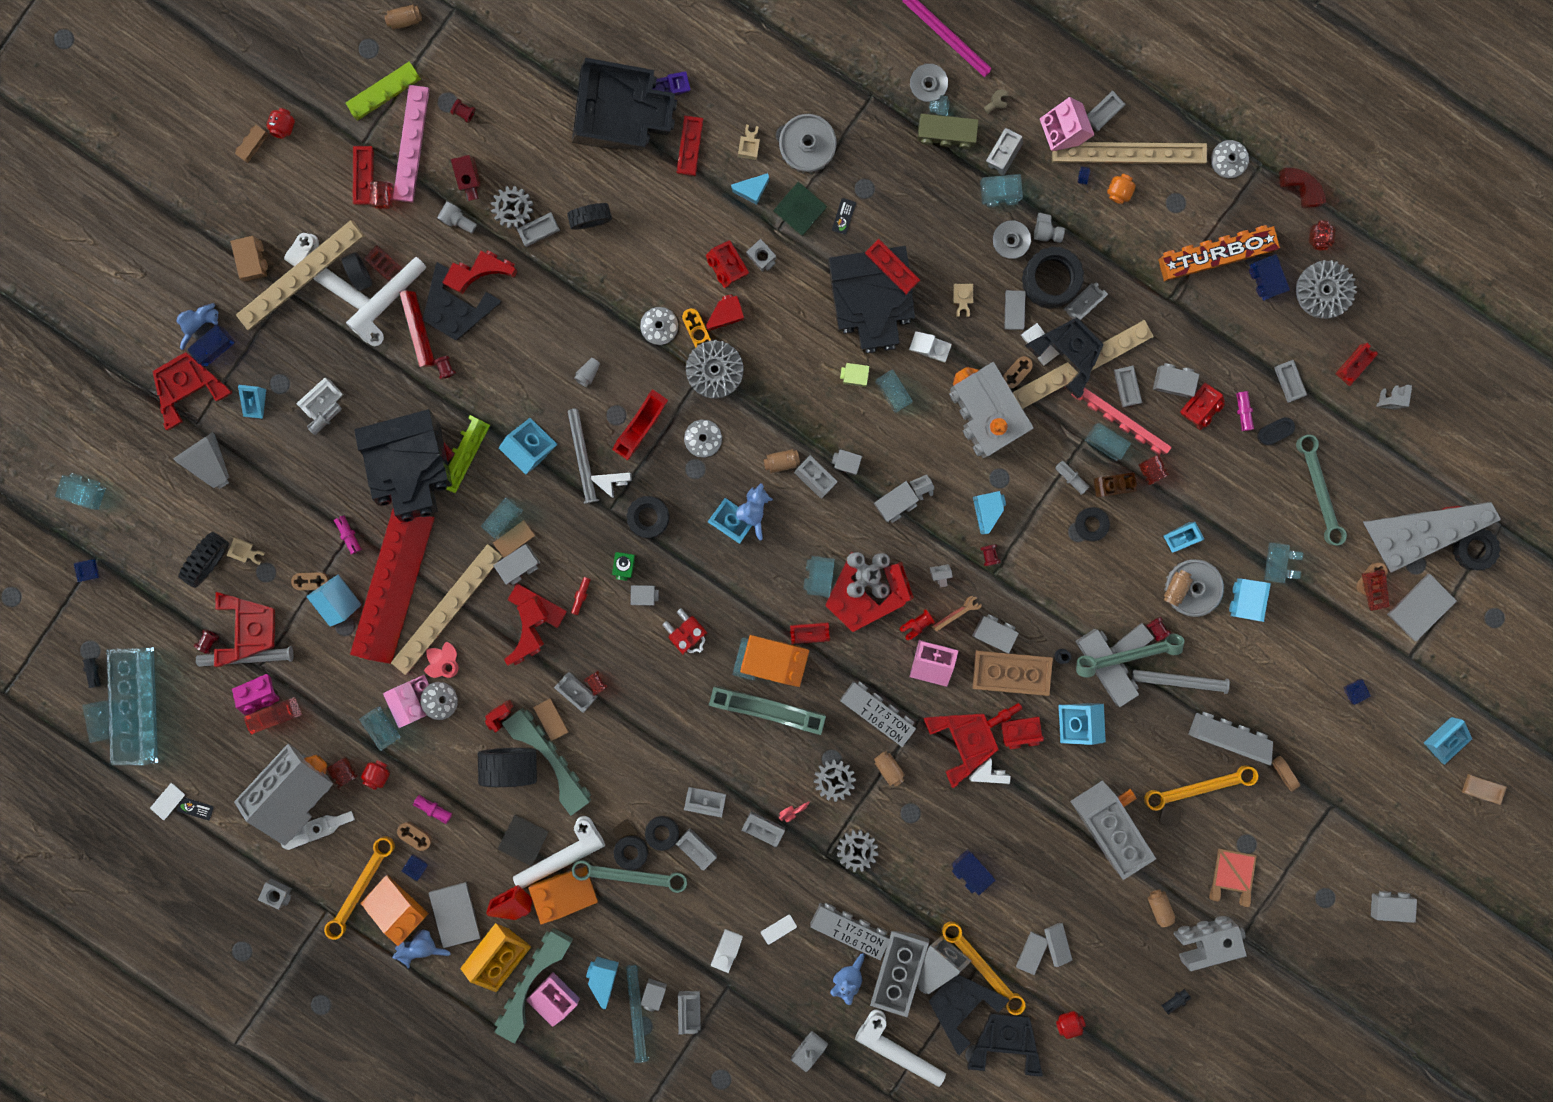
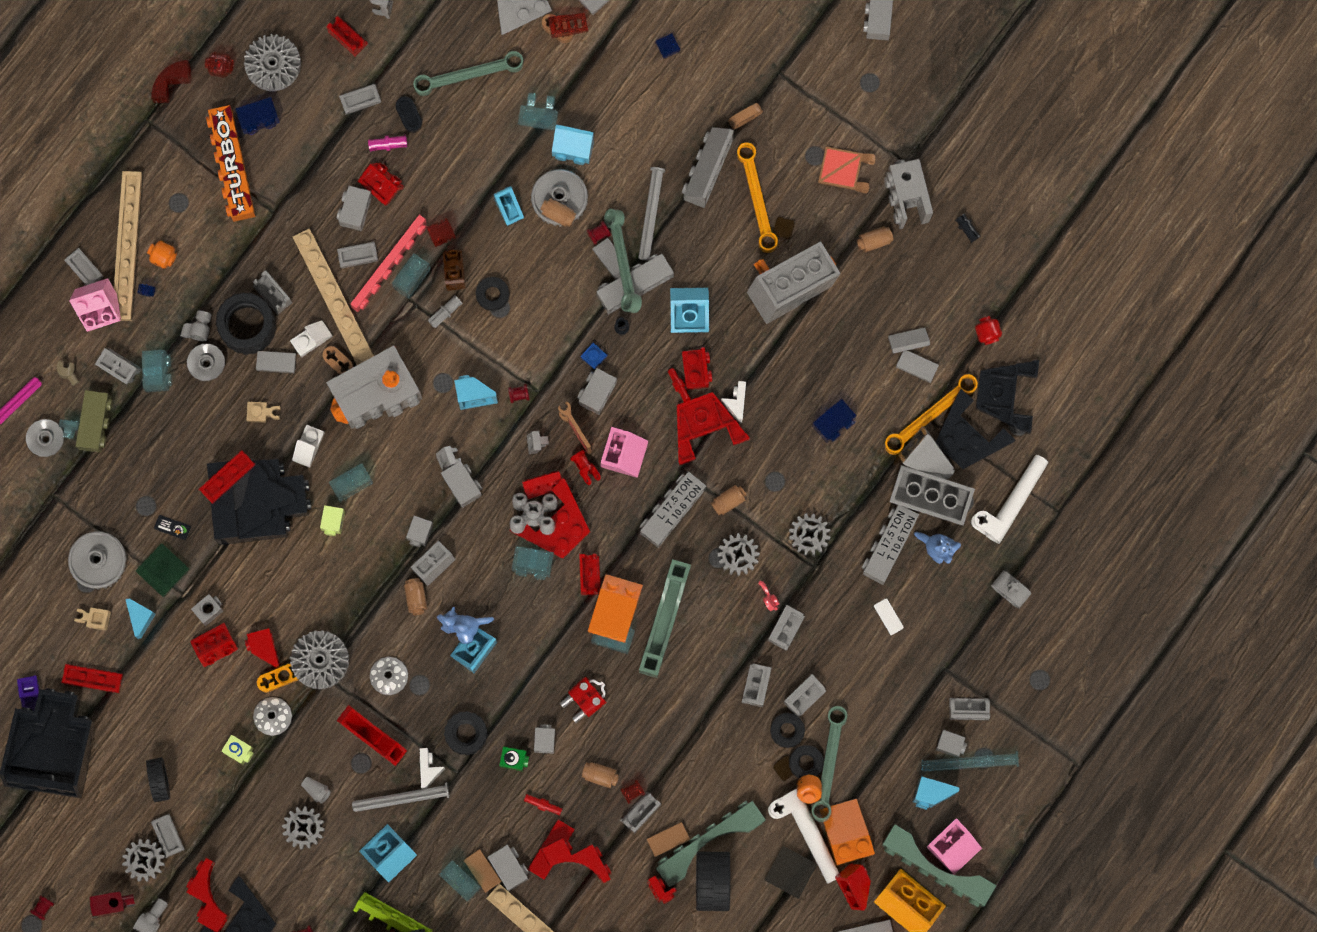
camera: 90 degrees left, 10 degrees down
(541, 368) = (296, 833): none -> light grey gear
(602, 858) = (809, 789): none -> orange head
(611, 651) = (600, 775): none -> medium nougat head
(623, 293) = (238, 750): none -> yellowish green brick
(726, 950) = (908, 669): white slope -> none
(1012, 673) = (637, 376): medium nougat plate -> none
(1031, 628) = (593, 356): none -> blue plate
(1076, 346) = (315, 302): black wing -> none
(1223, 165) = (140, 158): light grey dish -> none

